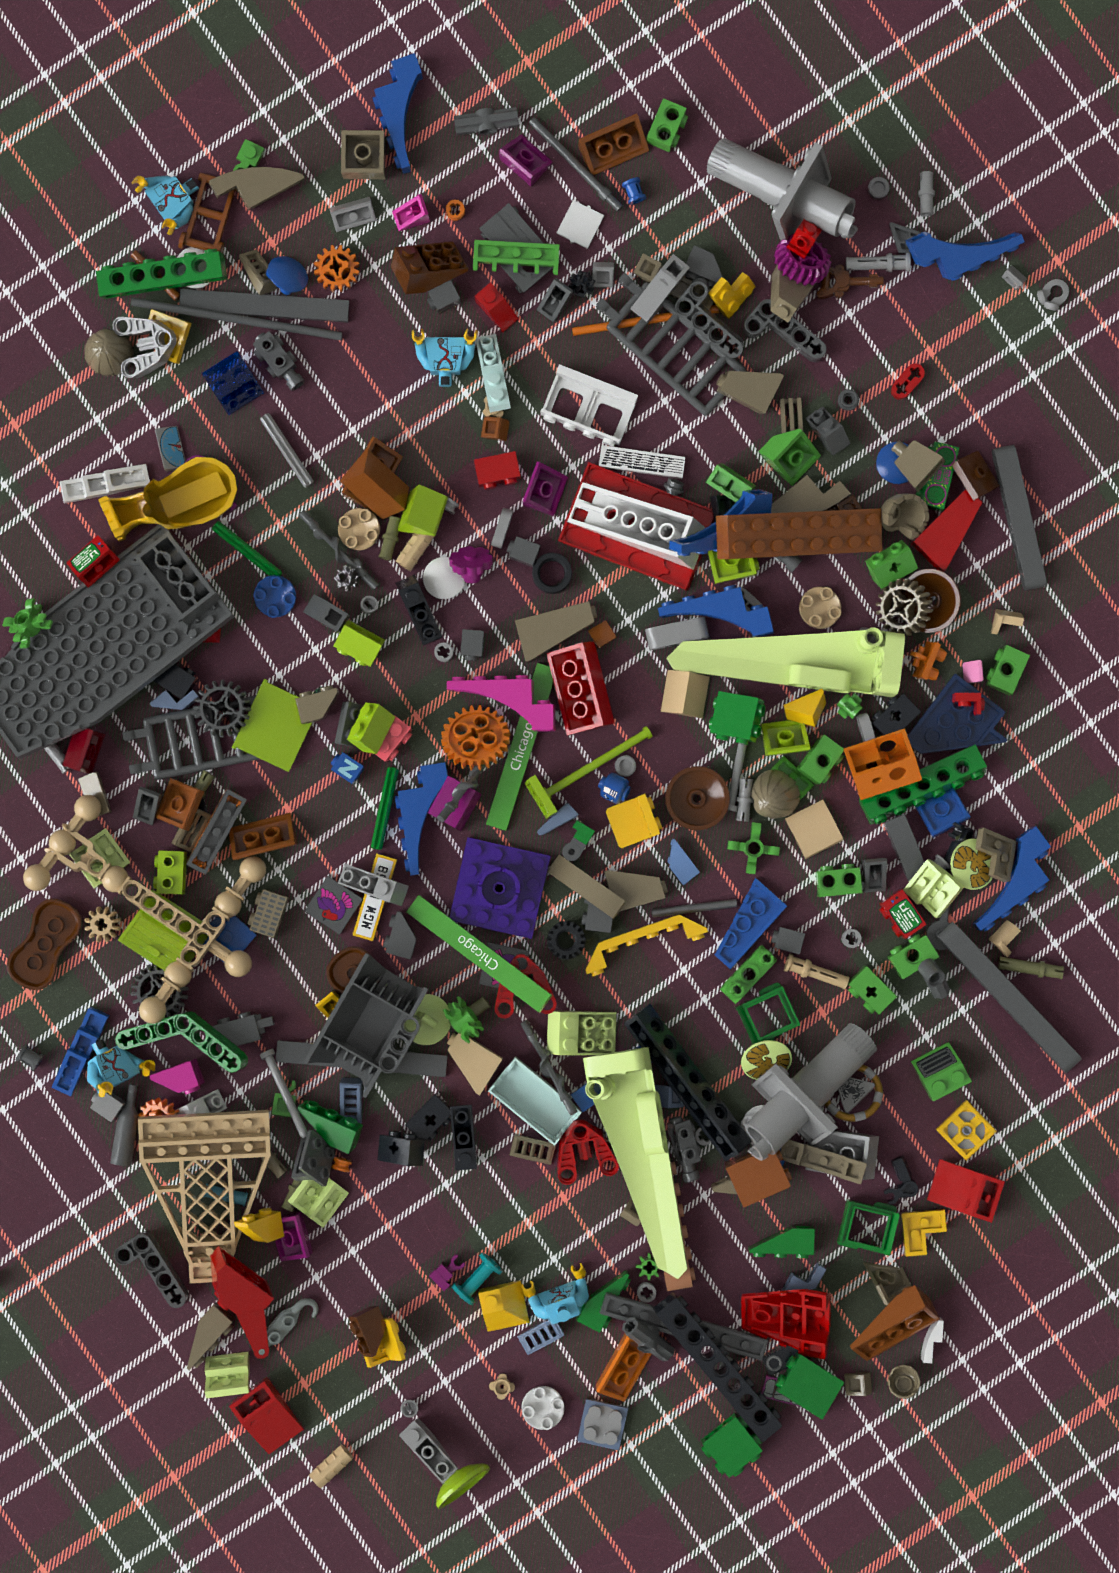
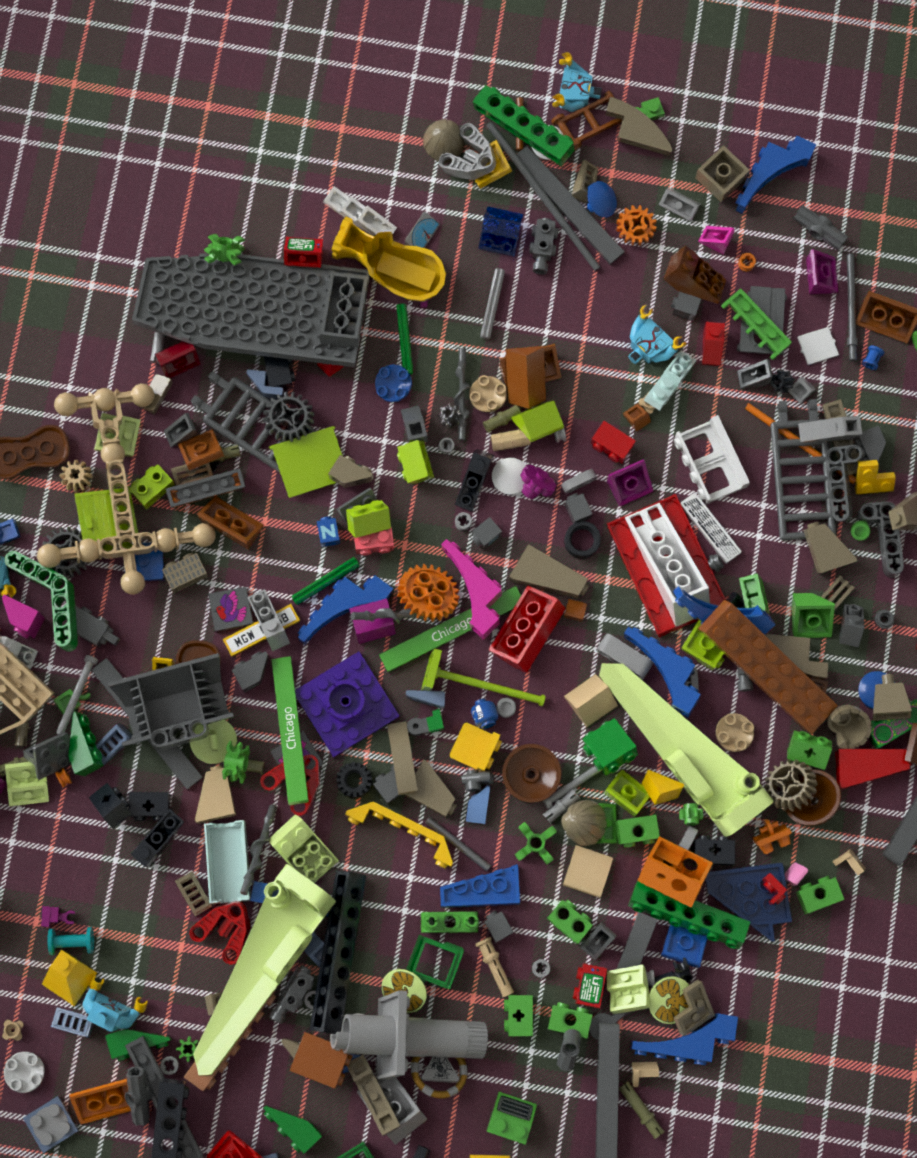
camera: 40 degrees right, 10 degrees down
(657, 847) = (473, 780): none -> dark grey plate
(761, 346) = (860, 530): none -> bright green tile

